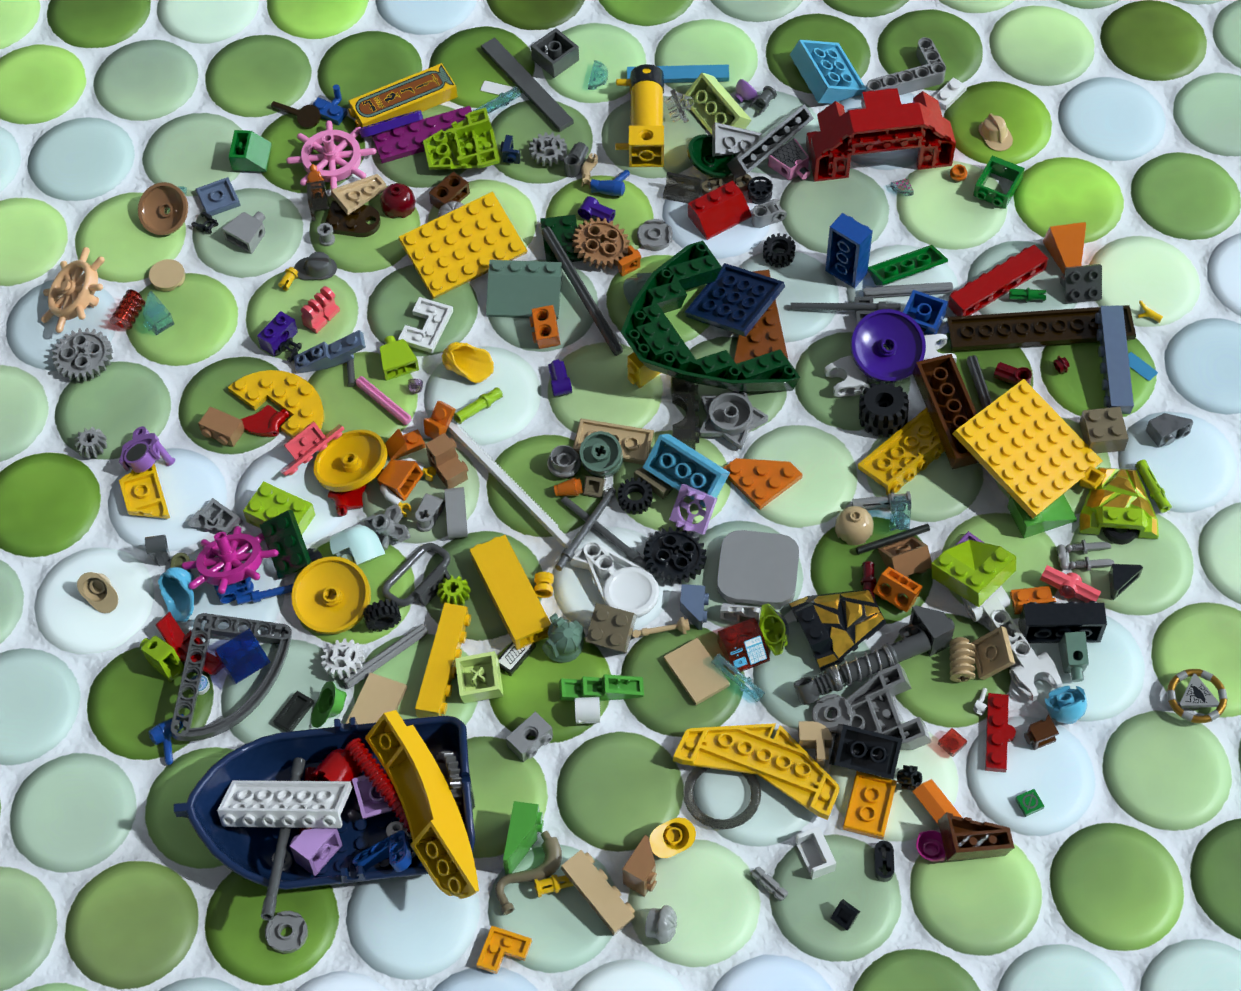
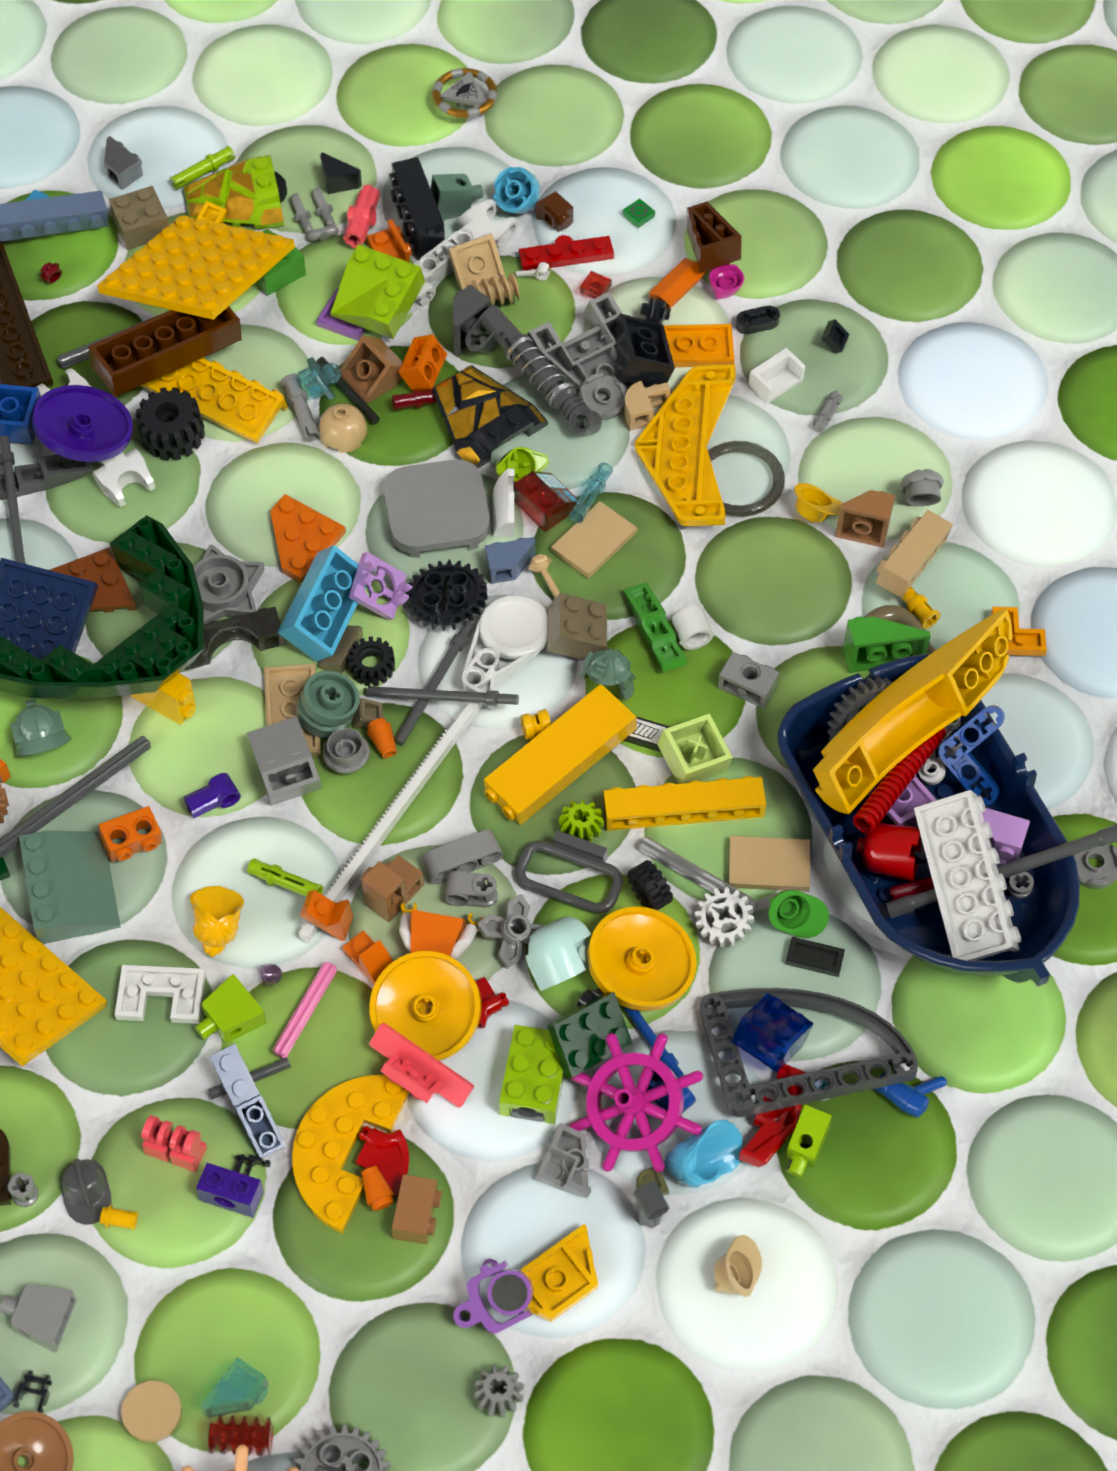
camera: 110 degrees left, 0 degrees up
(243, 408) = (376, 1189): none -> orange cone
(566, 420) = (284, 760): none -> light grey slope
(1011, 374) = (79, 314): dark red piece -> none

